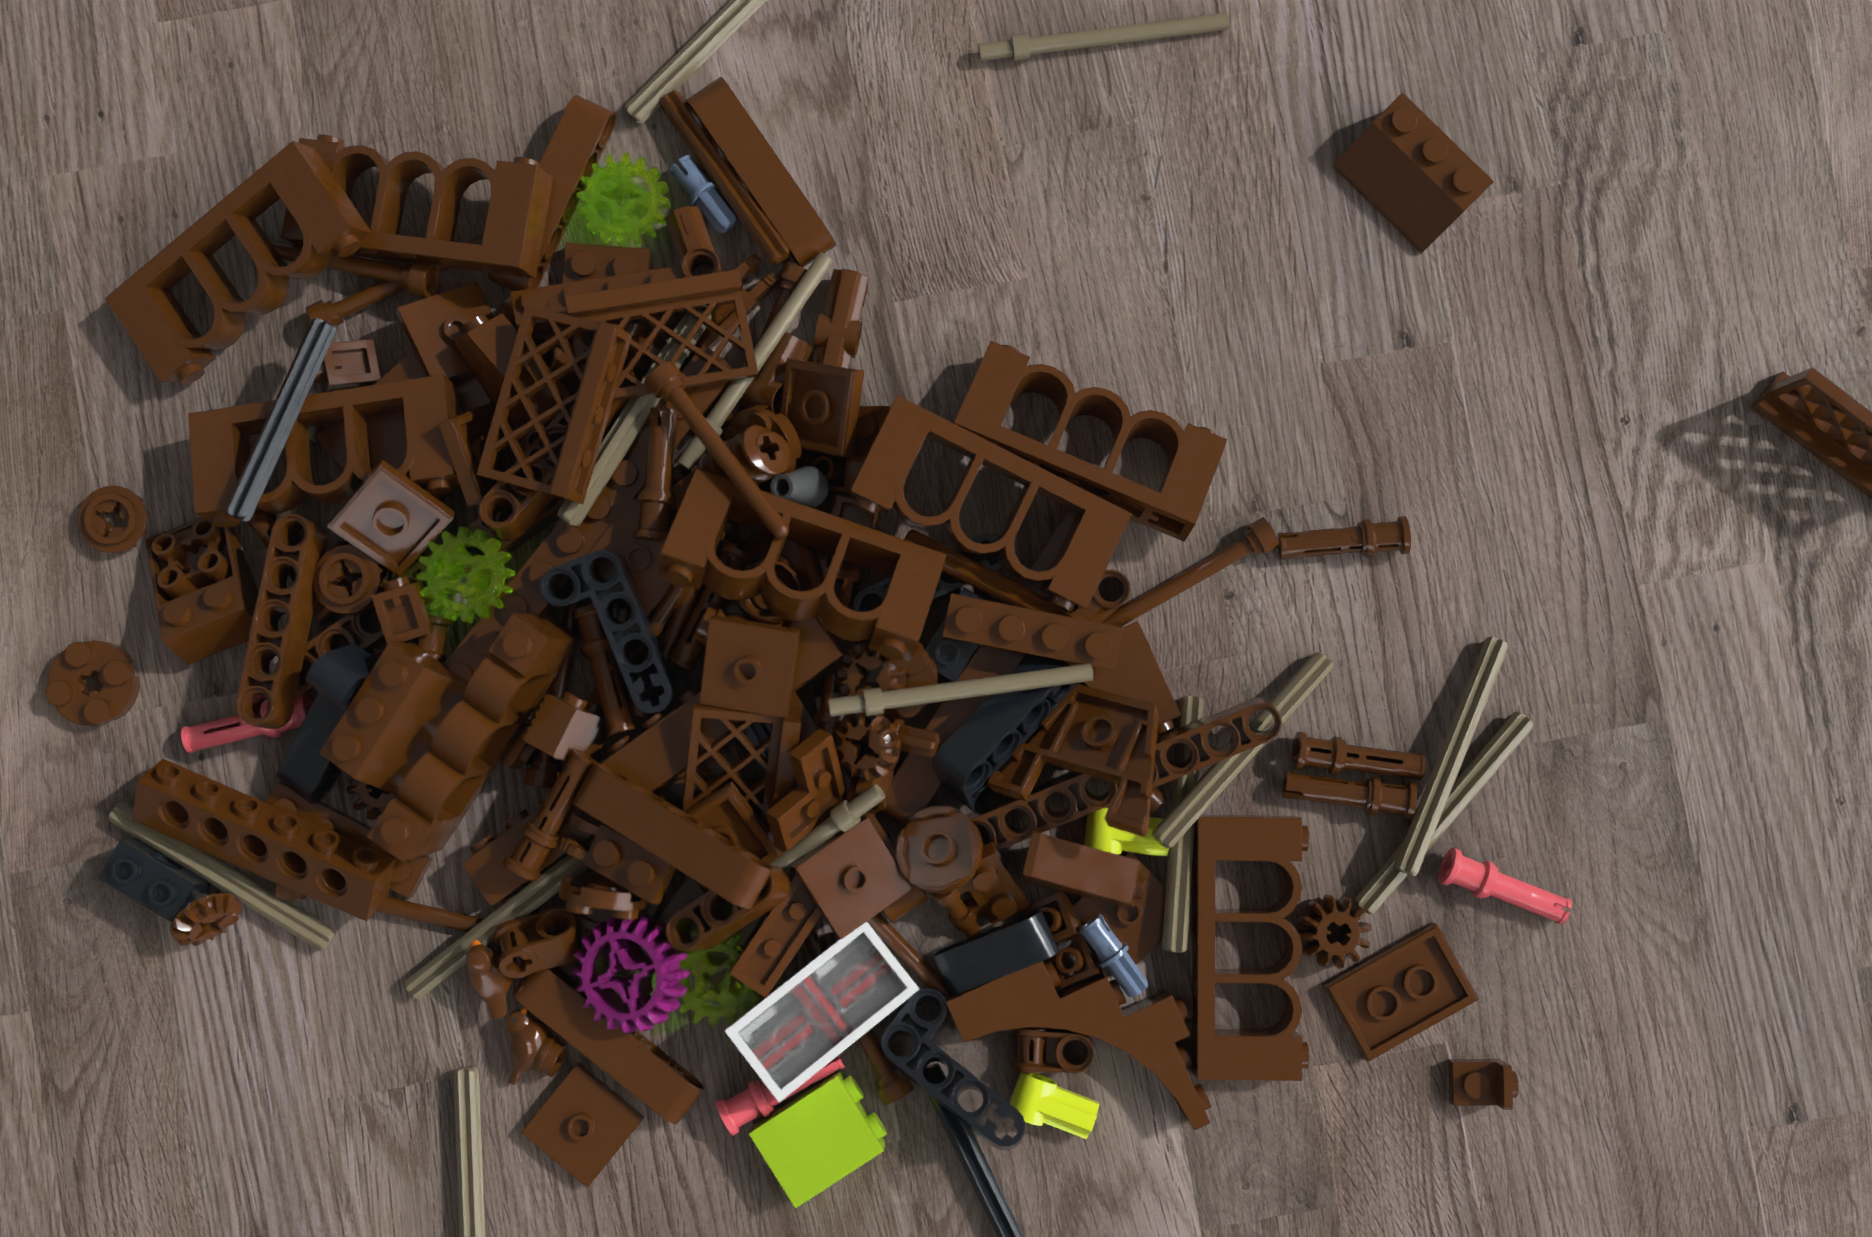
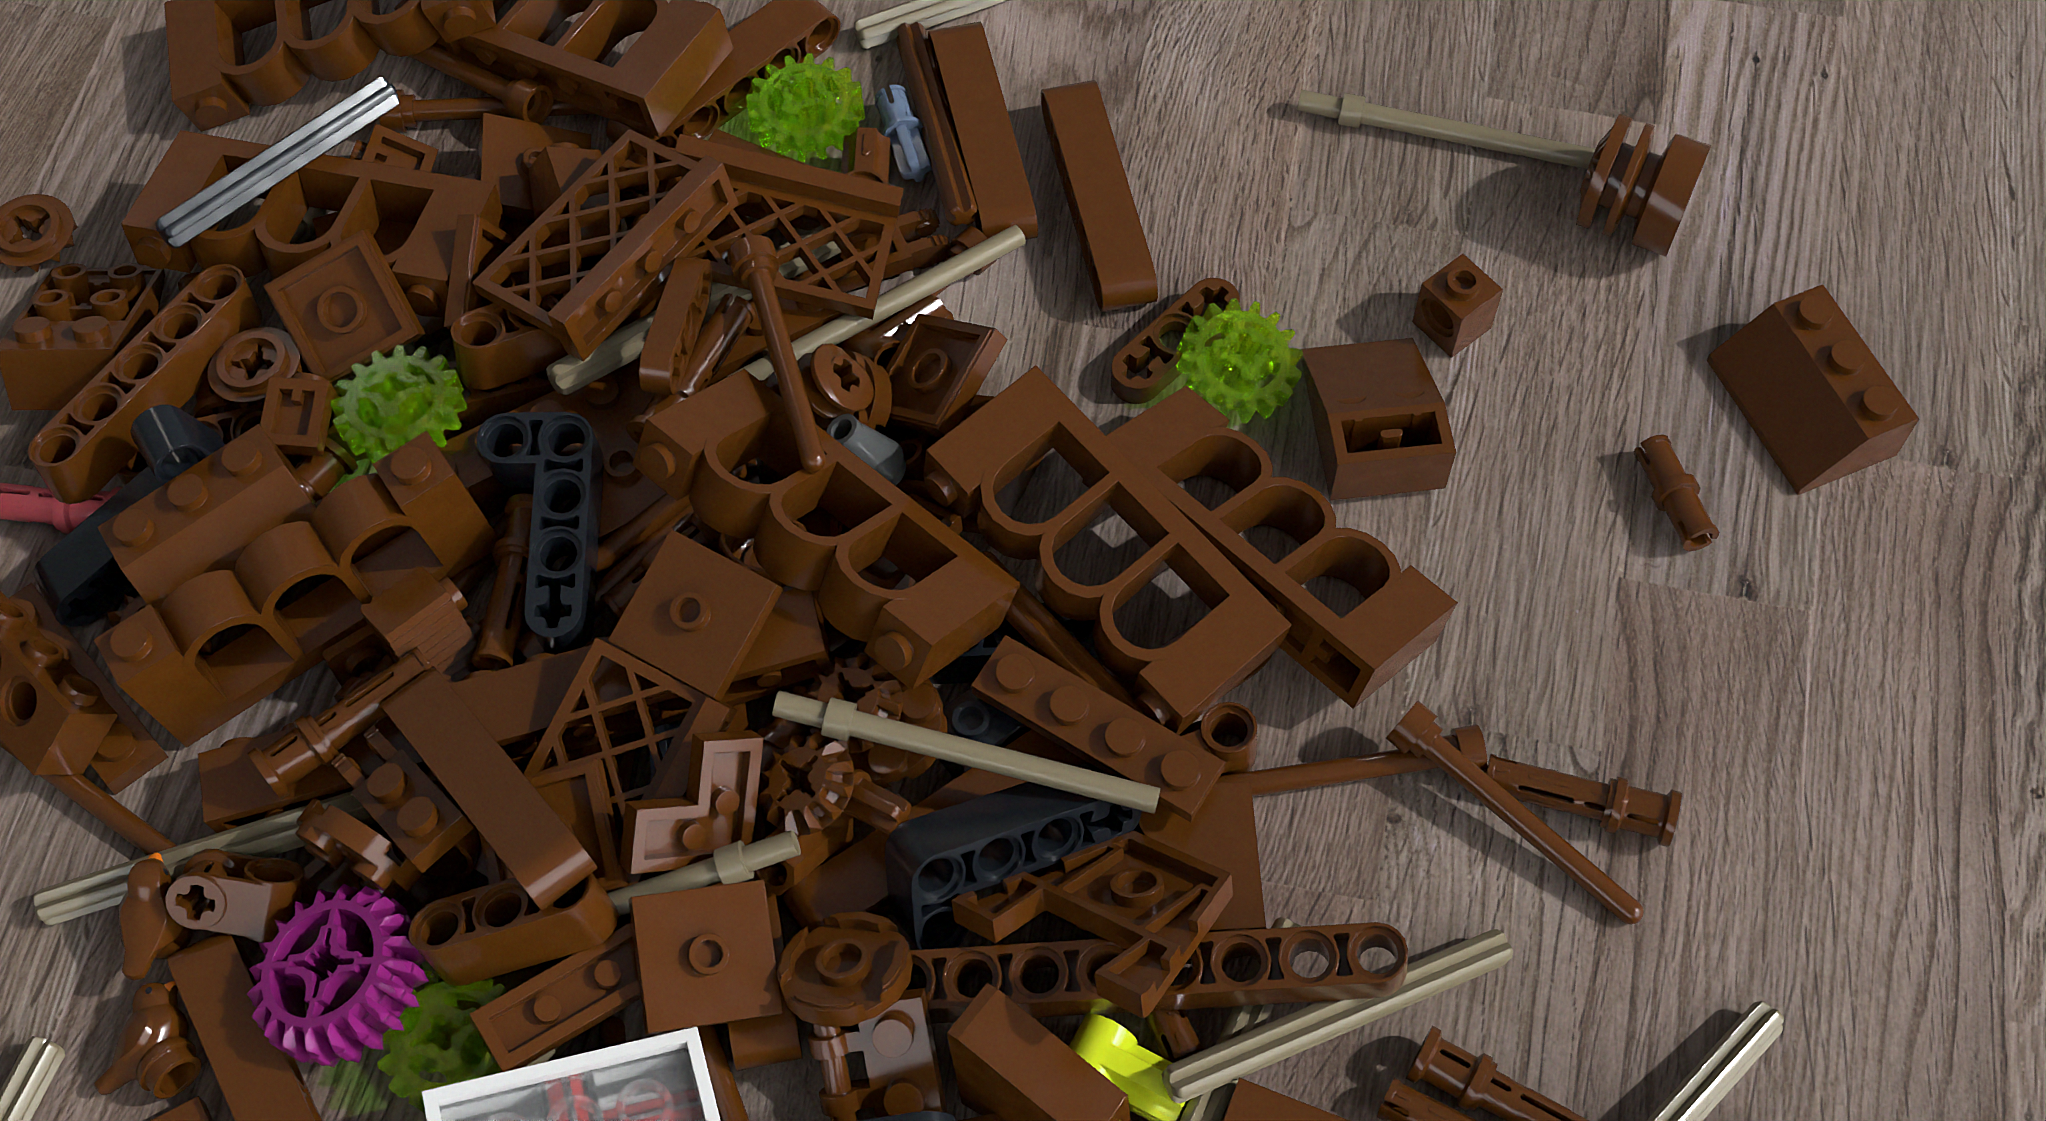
camera: 25 degrees right, 25 degrees down
(636, 455) = (676, 326): none -> reddish brown beam
(840, 325) = (1015, 303): reddish brown piece -> none
(865, 194) = (1098, 196): none -> reddish brown beam
(986, 271) = (1163, 368): none -> reddish brown beam
(1010, 285) = (1236, 363): none -> clear neon green gear
(1124, 305) = (1378, 419): none -> reddish brown slope
(1152, 196) = (1457, 305): none -> reddish brown brick
(1230, 544) = (1422, 736): none -> reddish brown piece
(1254, 49) = (1641, 184): none -> reddish brown wheel
(1342, 289) = (1676, 493): none -> reddish brown pin

